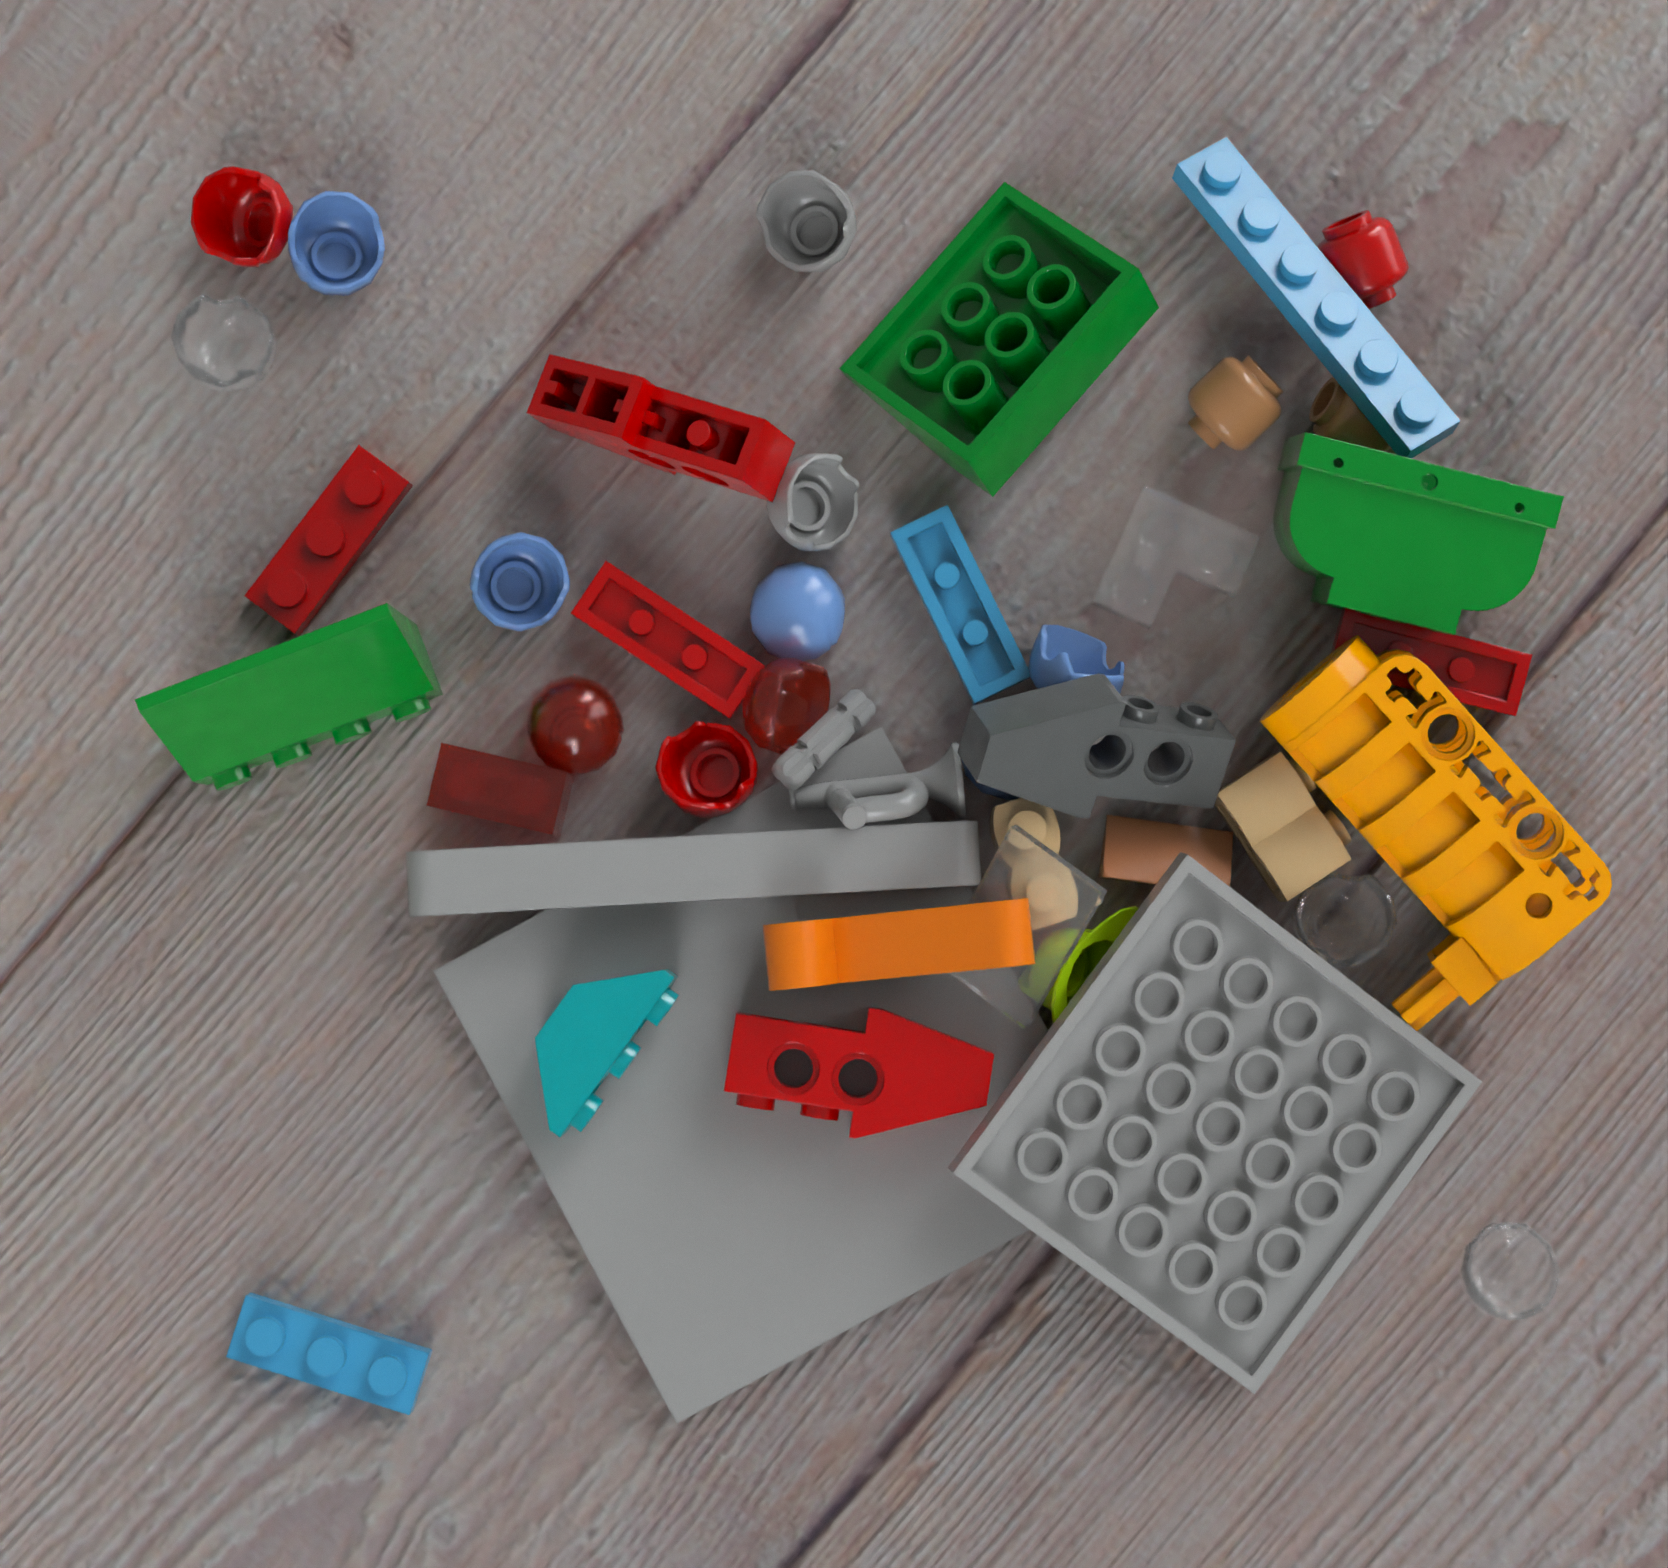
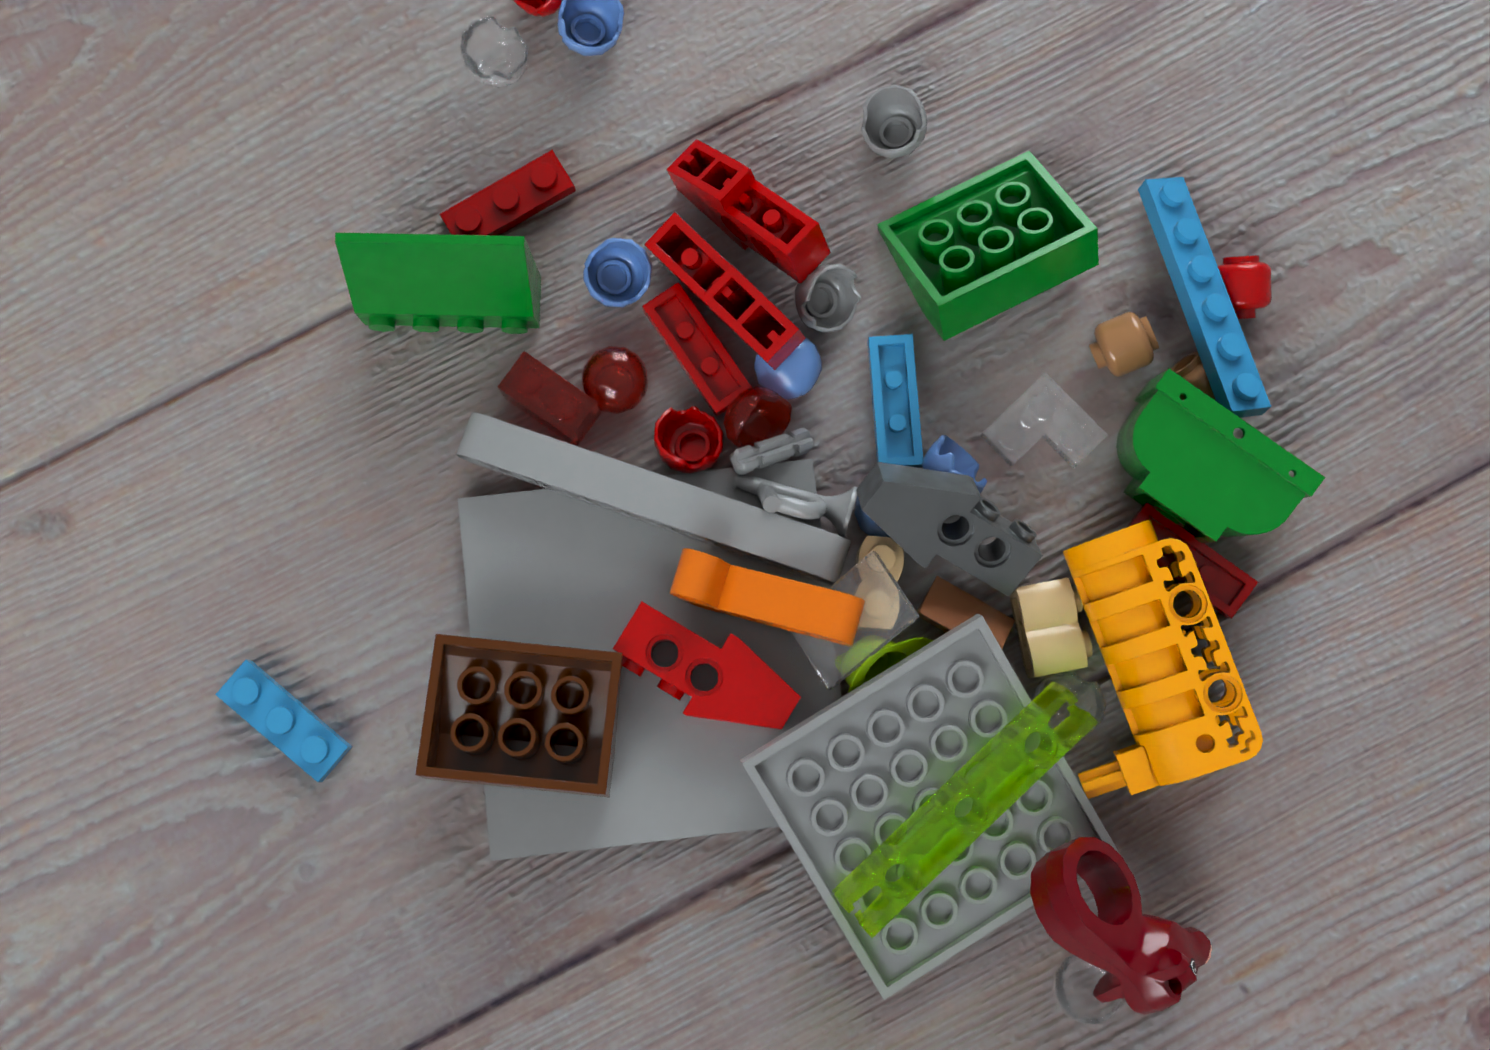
camera: 15 degrees right, 5 degrees down
(594, 1037) = (542, 581): teal slope -> none
(641, 1225) = (521, 715): none -> reddish brown slope
(675, 553) = (725, 291): none -> red brick
(1239, 1161) = (993, 781): none -> clear neon green piece
(1558, 1204) = (1143, 954): none -> dark red animal

